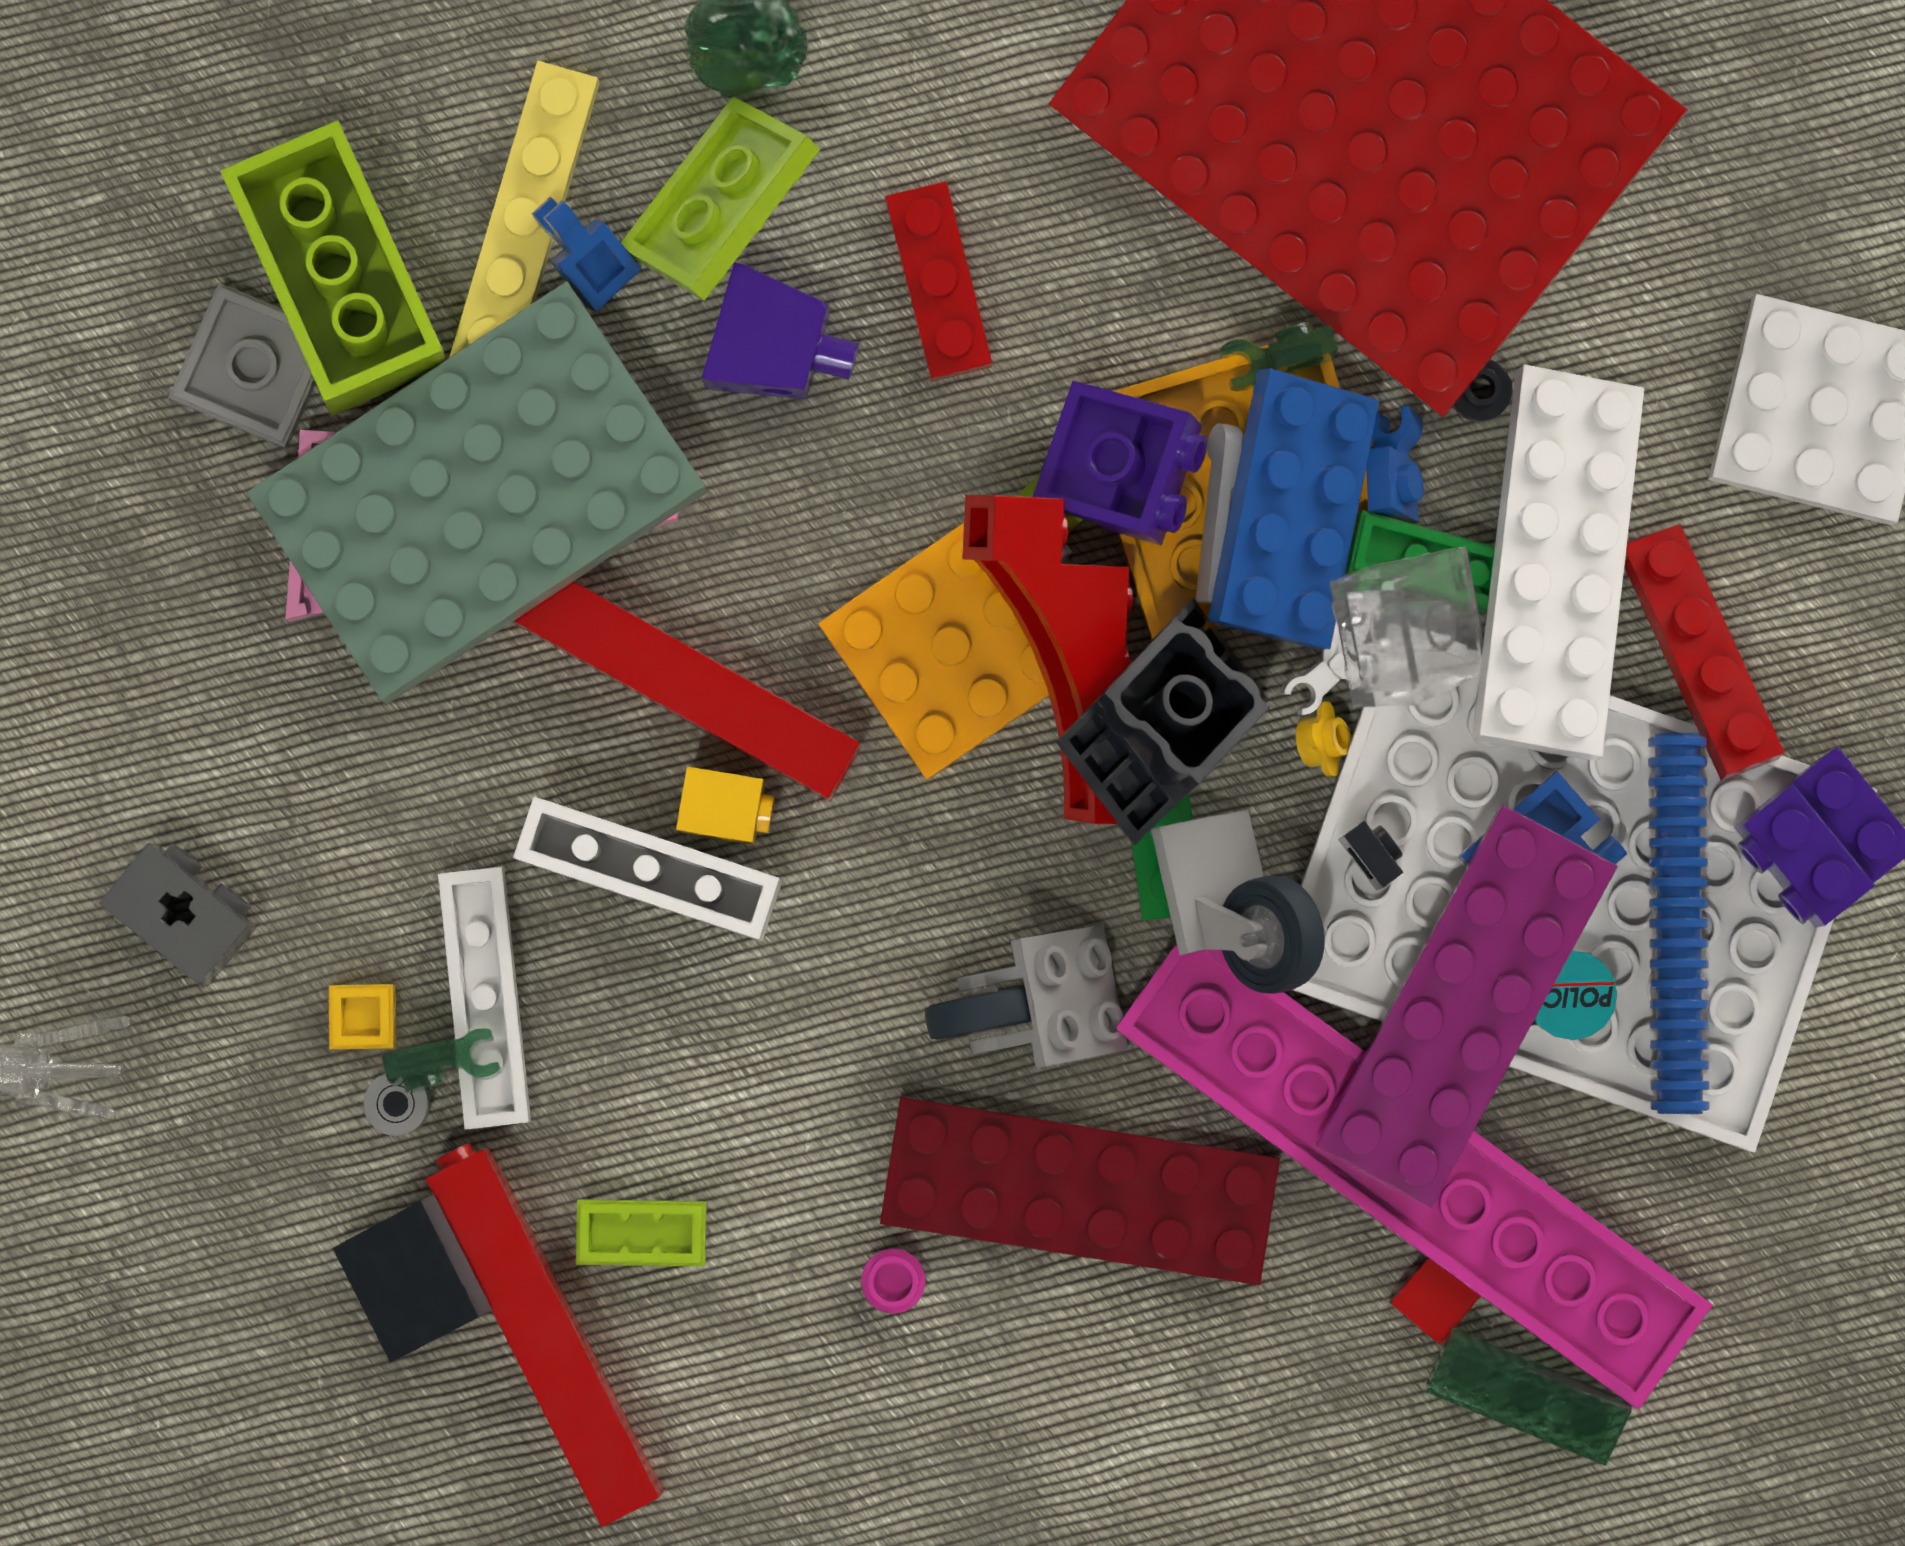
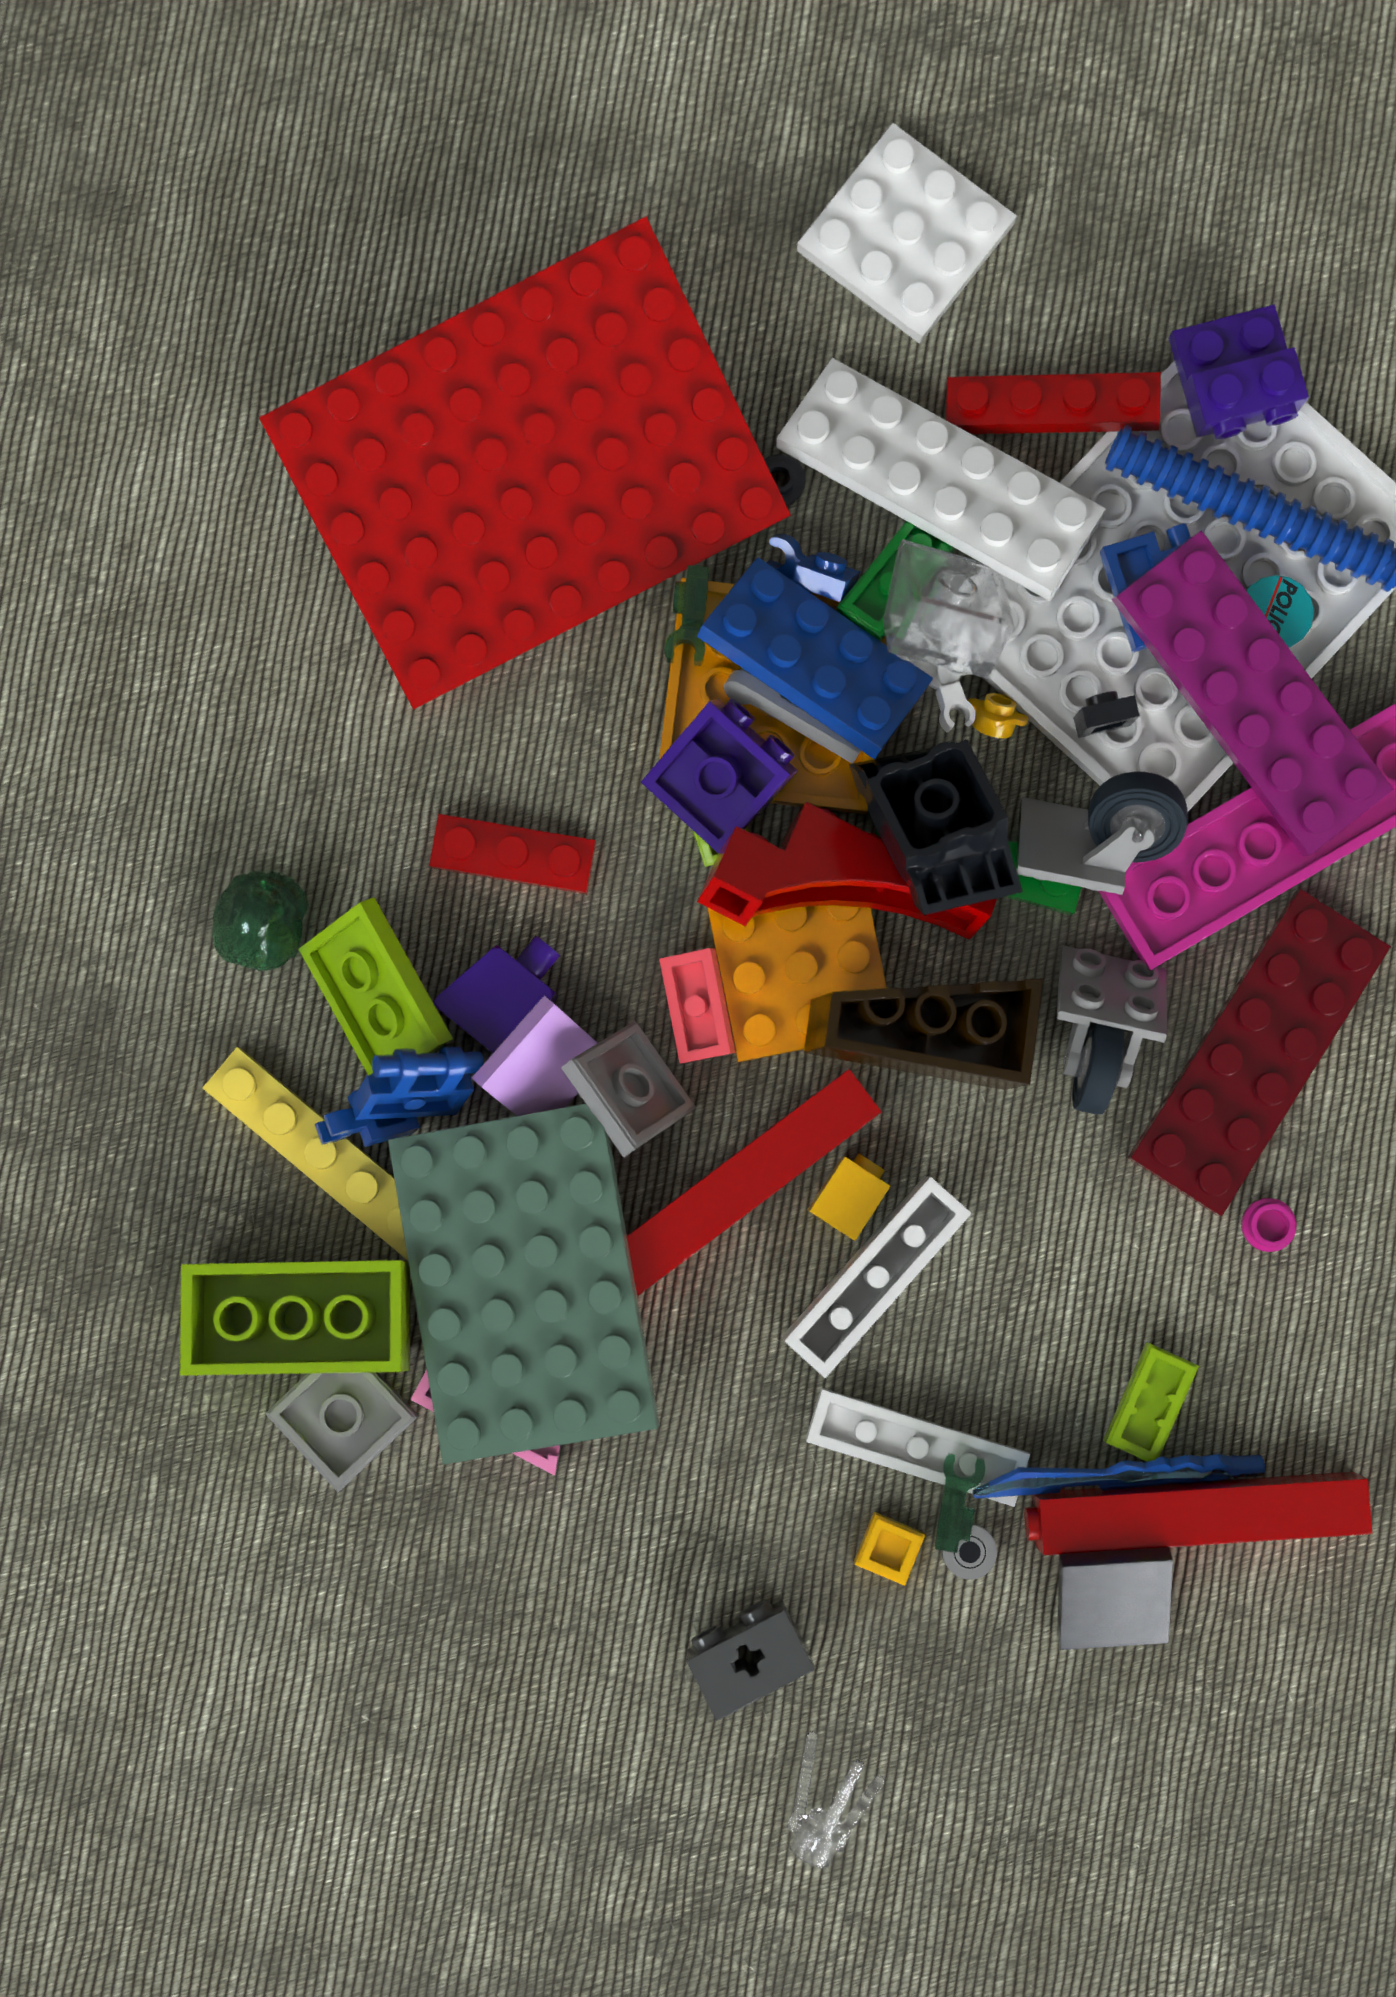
camera: 65 degrees left, 0 degrees up
(550, 1233) = (1124, 1475): none -> blue sword
(639, 285) = (417, 1084): none -> blue plate
(722, 409) = (528, 1064): none -> lavender tile
(735, 514) = (628, 1088): none -> light grey tile
(859, 552) = (697, 1005): none -> coral plate
(945, 827) = (940, 1031): none -> dark brown wedge

